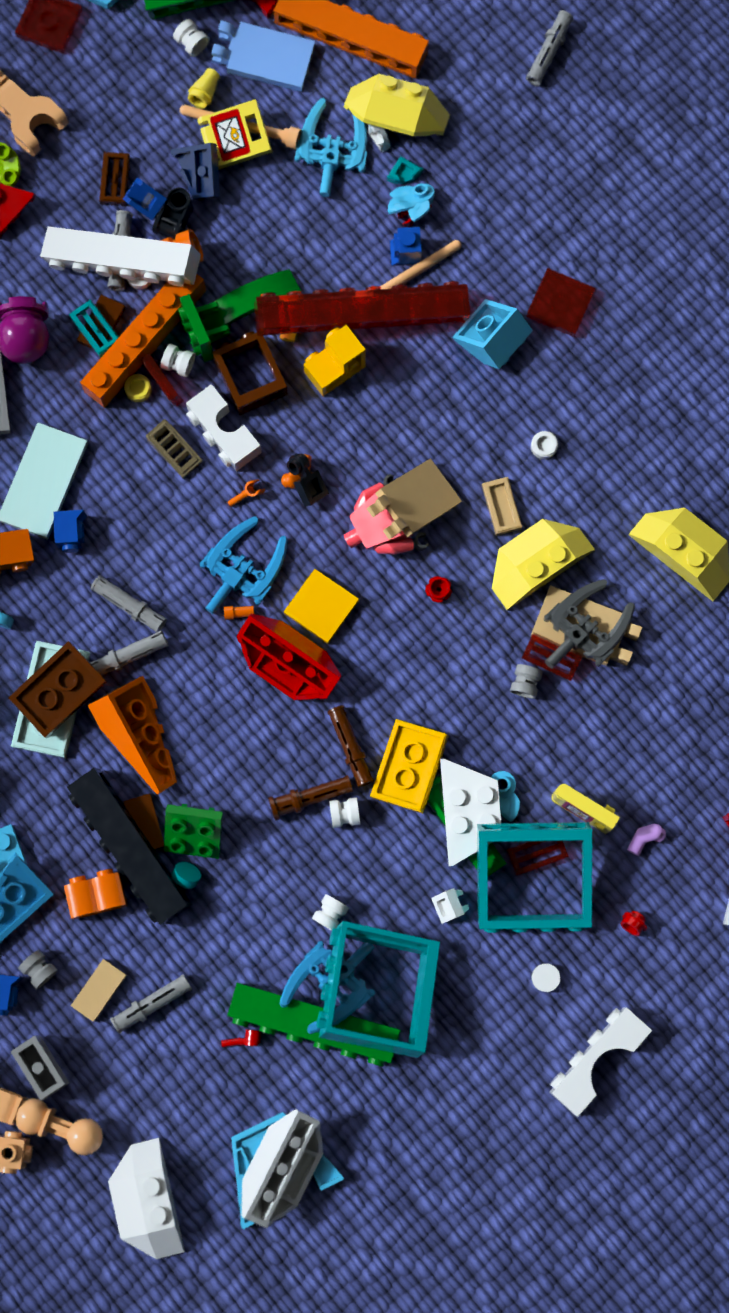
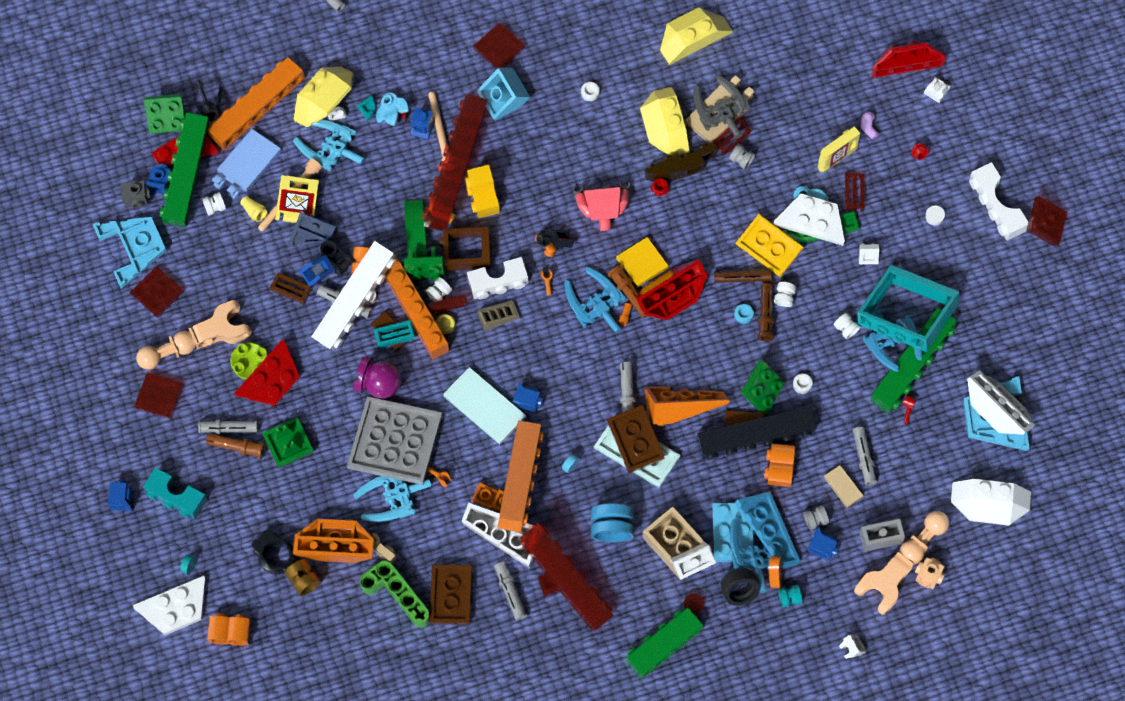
camera: 65 degrees left, 10 degrees down
(135, 608) = (595, 377): light grey pin -> none
(186, 875) = (789, 404): teal tile -> none
(227, 882) = (802, 383): none -> white tile
(276, 592) = (625, 284): none -> dark orange pin
(298, 767) = (743, 313): none -> medium azure tile
(415, 499) = (598, 174): tan tile -> none
(473, 598) = (675, 168): none -> dark brown slope
(501, 506) = (620, 131): tan tile -> none
(534, 832) = (834, 207): teal window -> none
(595, 1140) = (1046, 221): none -> clear red tile

